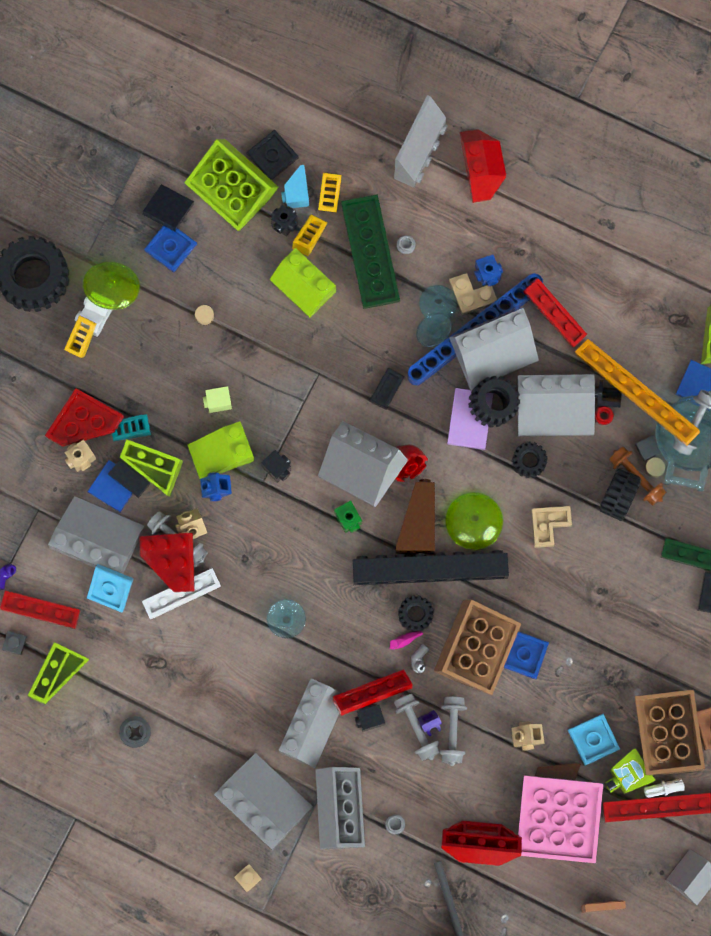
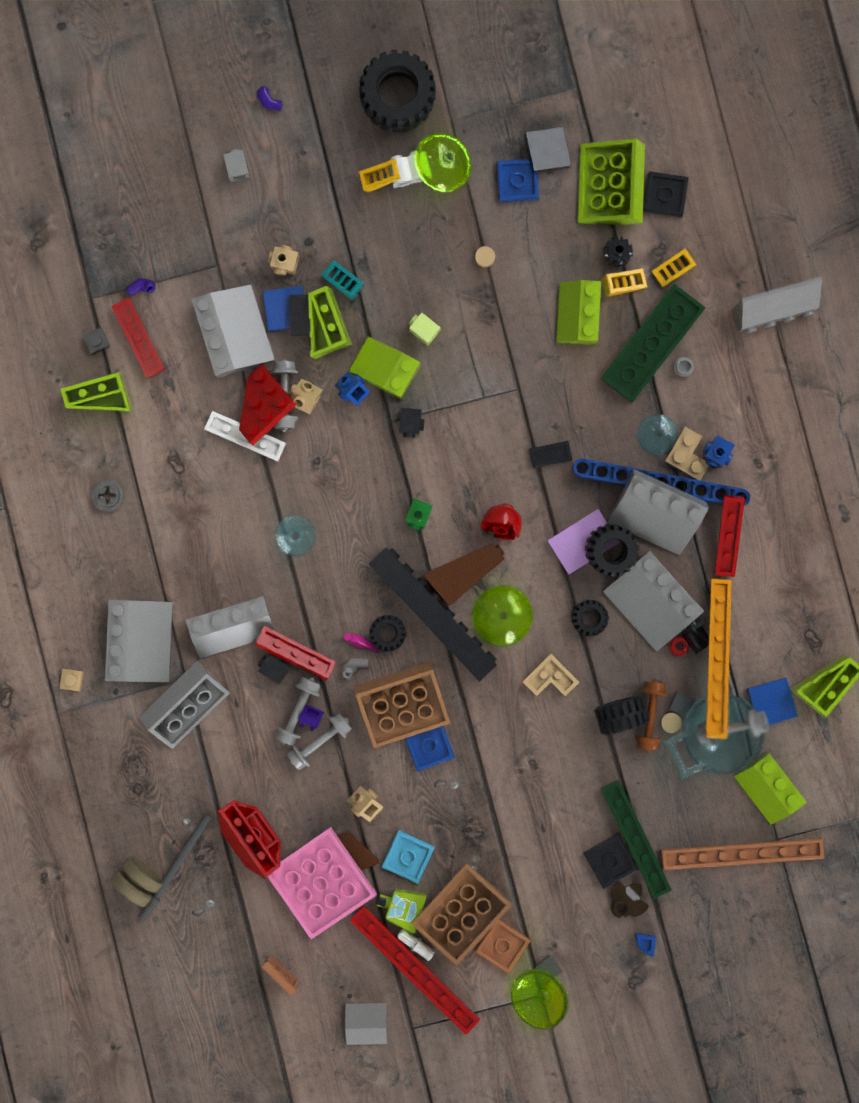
camera: 55 degrees right, 10 degrees up
(83, 420) = (315, 236): red plate -> none
(110, 588) = (200, 377): medium azure tile -> none
(296, 190) = (652, 239): medium azure slope -> none
(361, 463) = (467, 488): light grey slope -> none
(395, 824) = (209, 758): light grey plate -> none
(433, 330) = (630, 444): clear light blue dish -> none
(483, 164) = (807, 370): red wedge -> none

